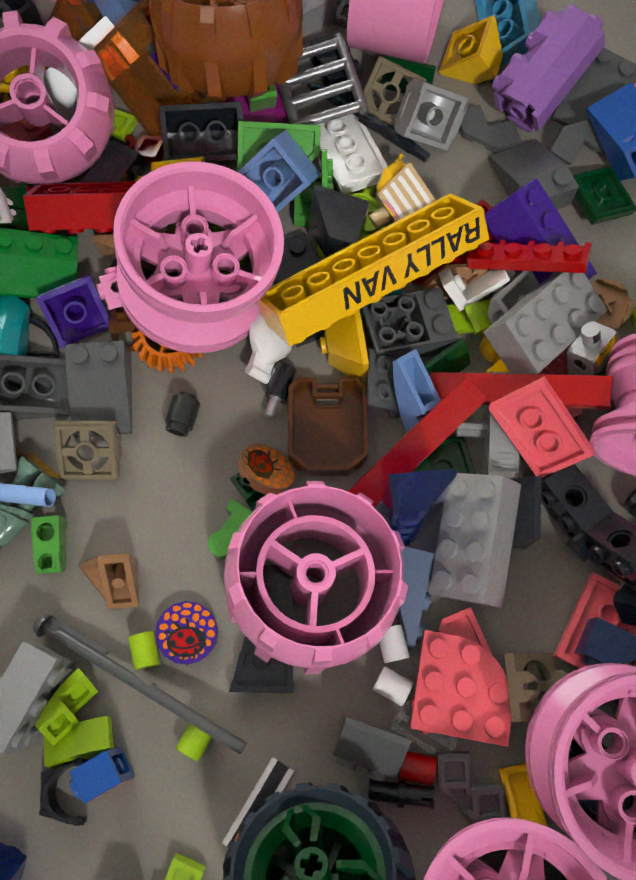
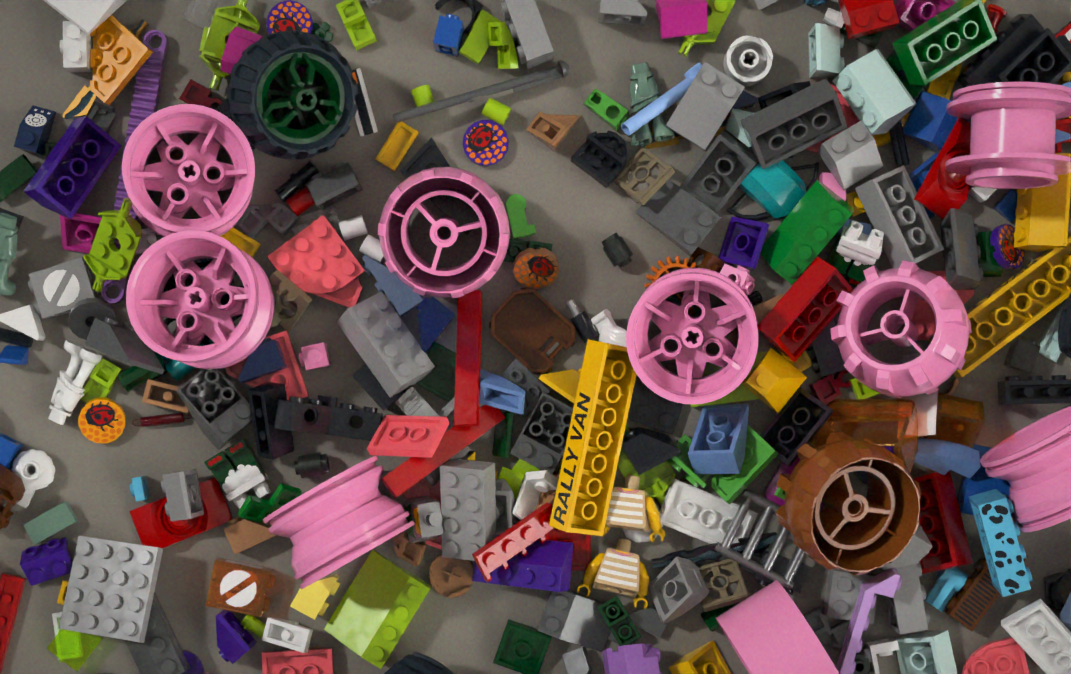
camera: 130 degrees right, 15 degrees up
(101, 505) = (602, 156): none -> black slope
(269, 721) = (397, 146): none -> yellow tile
(465, 173) = (618, 573): none -> torso
(501, 139) = (619, 621): none -> dark green slope
(551, 601) = (315, 356): none -> bright pink brick

